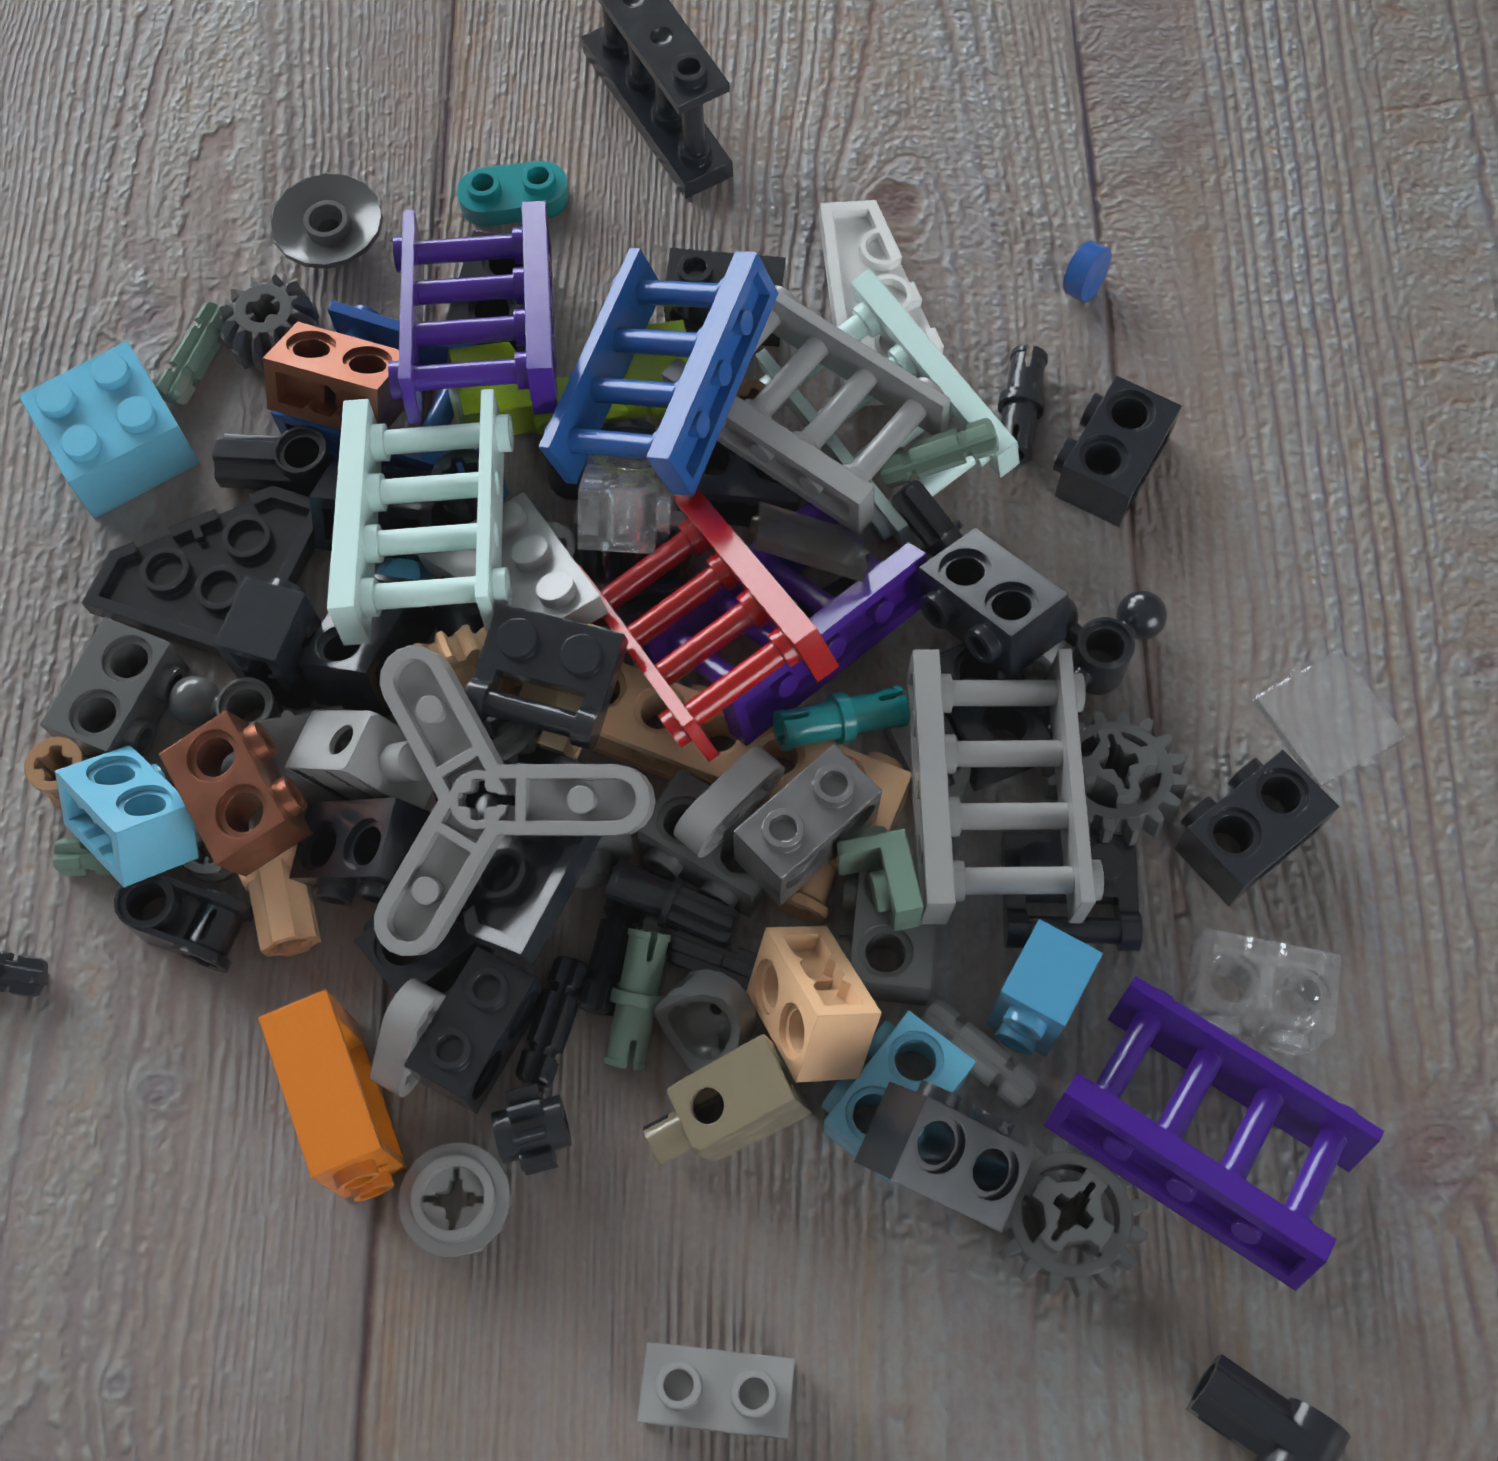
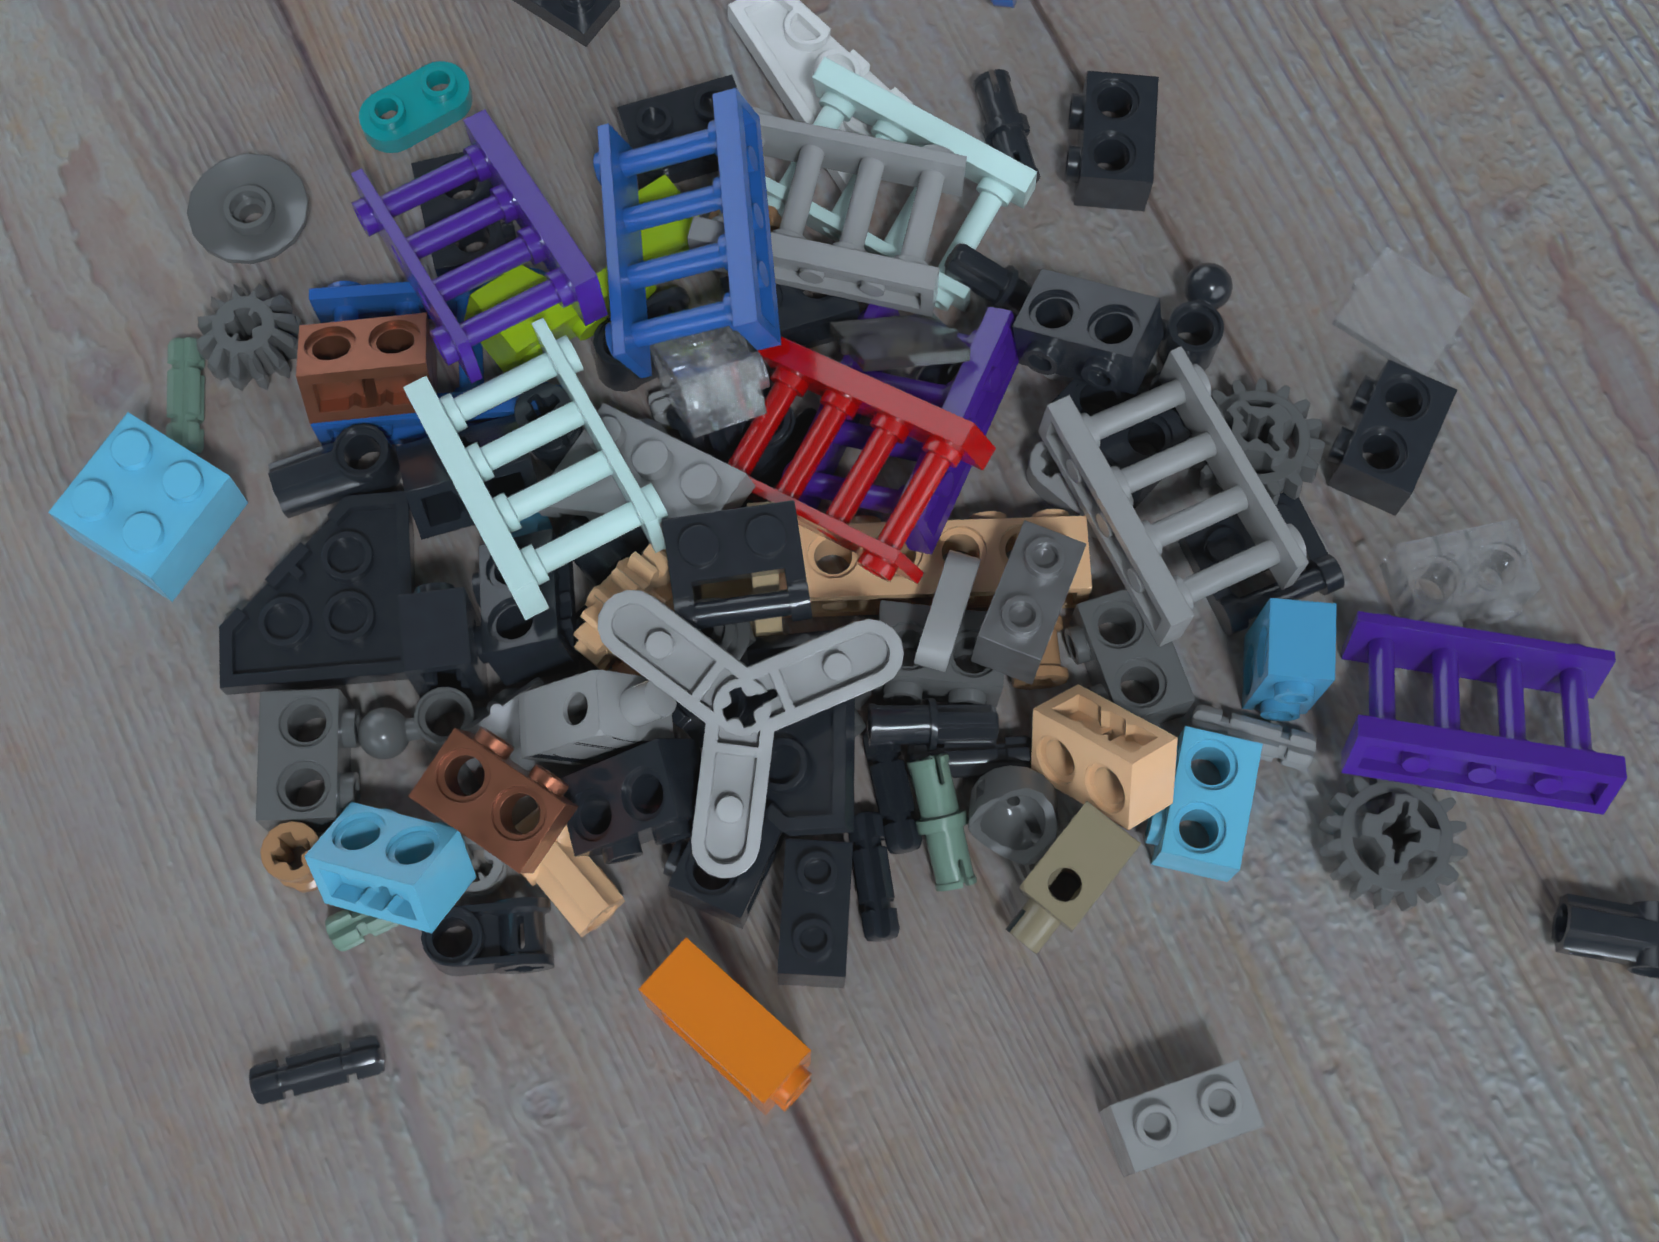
camera: 30 degrees left, 5 degrees up
(400, 1032) = (761, 946): light grey beam -> none
(434, 1176) = (838, 1058): light grey gear -> none
(531, 1129) = (909, 976): black gear -> none
(840, 718) = (1002, 493): teal pin -> none
(895, 883) = (1125, 614): sand green bracket -> none
(940, 452) = (975, 208): sand green axle -> none
(947, 1152) = (1278, 831): black brick -> none

